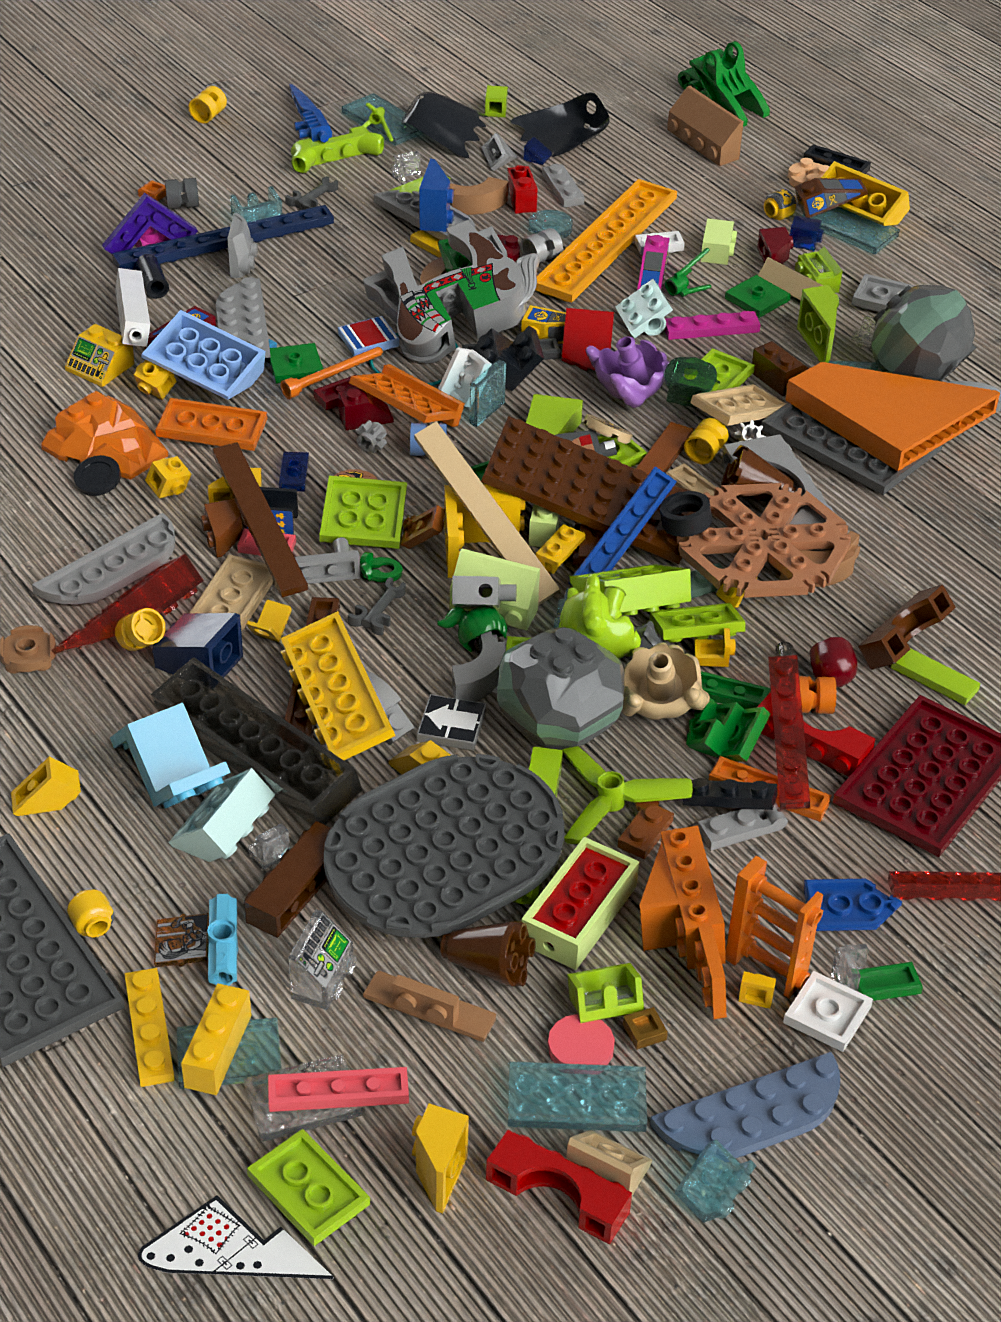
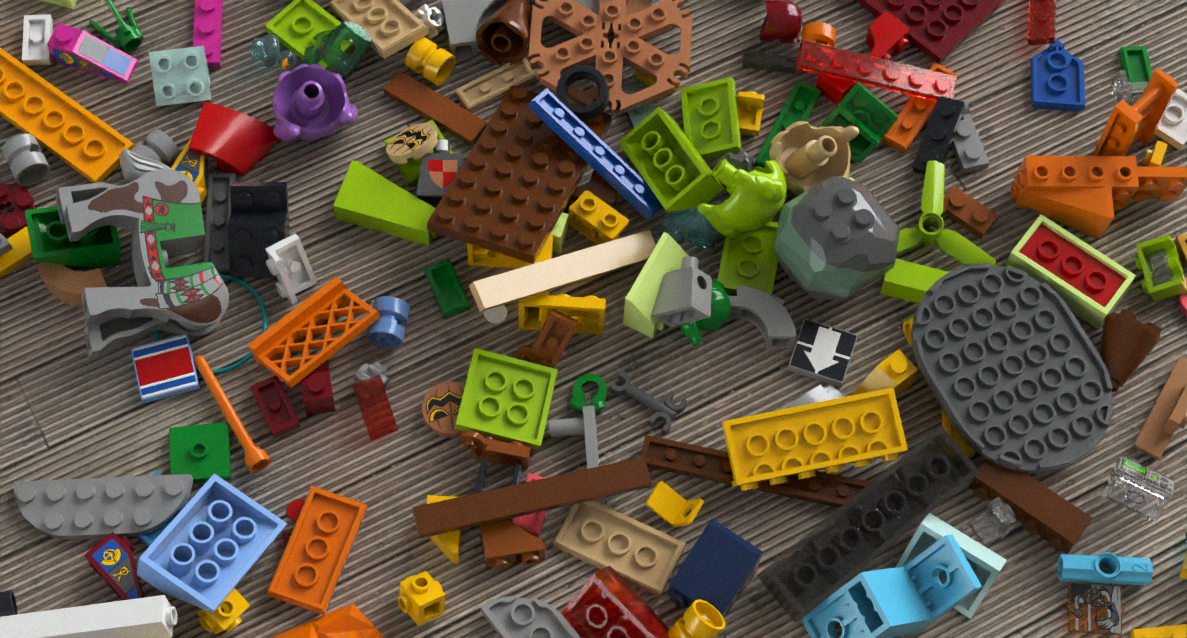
camera: 85 degrees left, 20 degrees up
(294, 470) = (410, 468): clear blue plate -> none
(313, 510) = (496, 451): none -> dark orange hinge
(342, 436) = (375, 407): none -> clear red tile
(487, 393) = (324, 250): clear light blue tile -> none
(559, 299) = (158, 147): none -> light grey wheel
(687, 348) = (268, 52): none -> clear light blue animal

